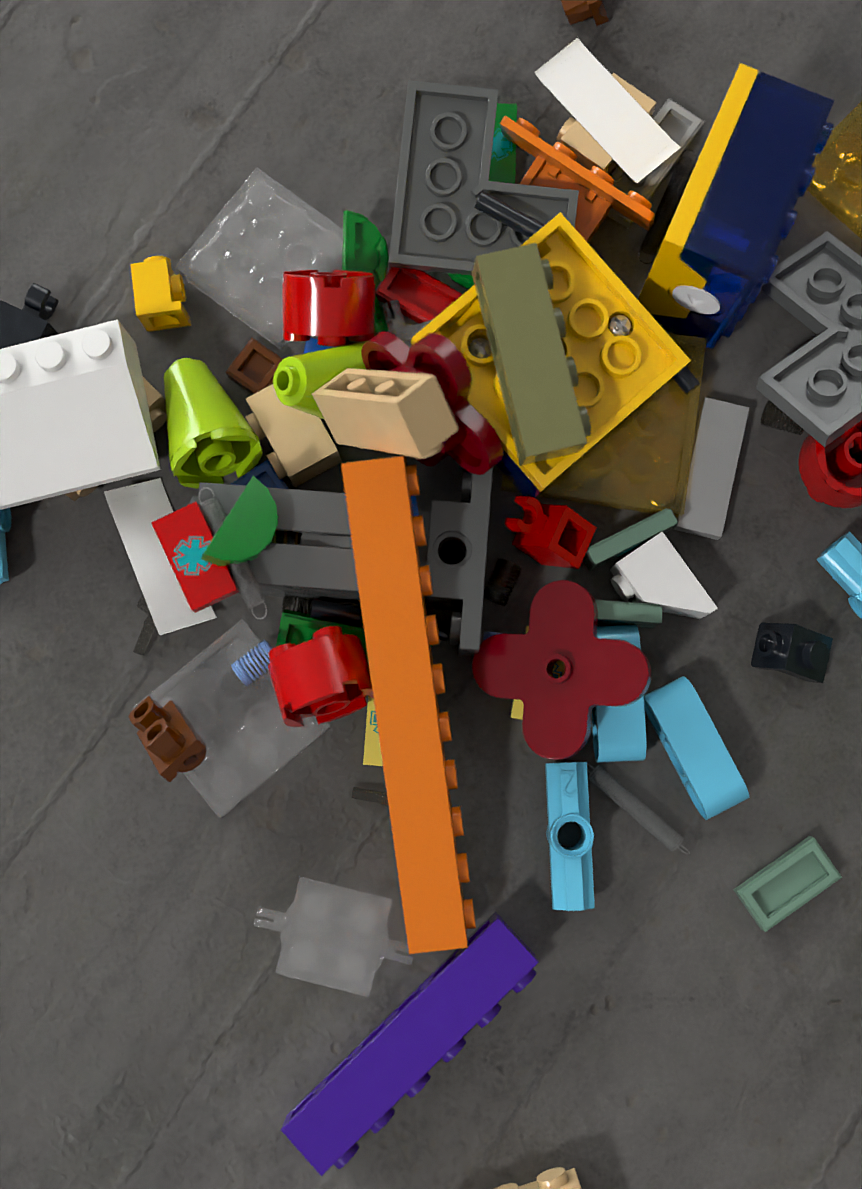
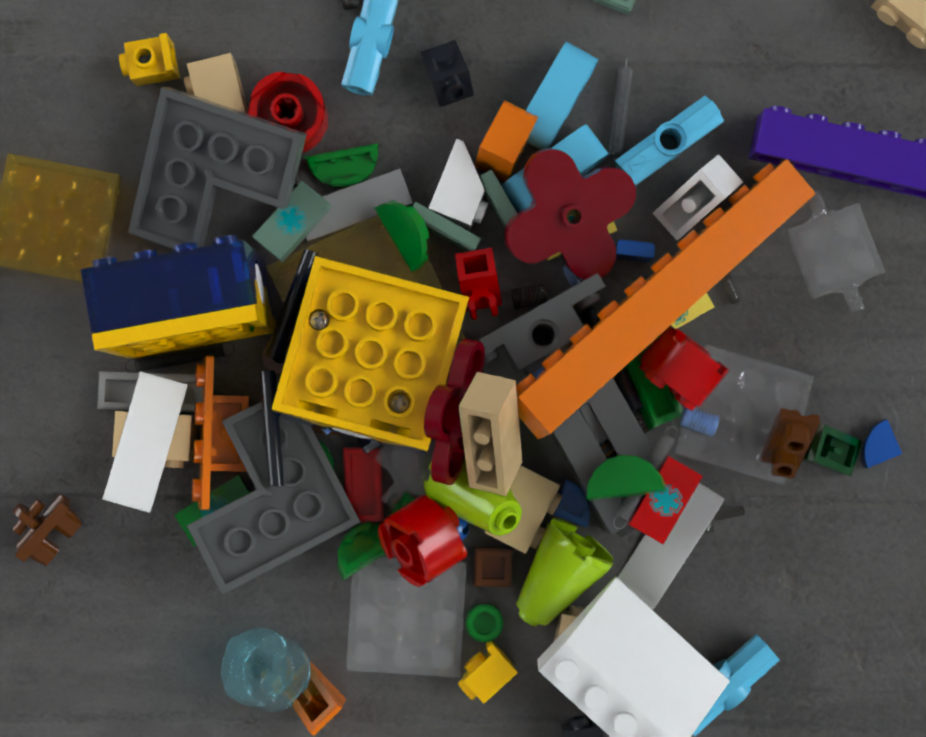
camera: 130 degrees left, 5 degrees up
(103, 840) = (879, 445): none -> blue tile
(132, 784) = (833, 450): none -> dark green slope
(210, 326) = (484, 622): none -> green tile
(253, 119) = (318, 702): none -> orange slope
(309, 84) = (246, 673): none -> clear light blue brick
(478, 718) = (634, 250): none -> blue tile
(490, 826) = (697, 197): none -> white slope
(530, 354) = (391, 361): olive brick -> none
(652, 493) = (406, 230): none -> green tile
(683, 659) = (505, 140): none -> orange slope
(734, 392) = (290, 225): none -> sand green tile
(758, 485) = (345, 166): none -> green tile

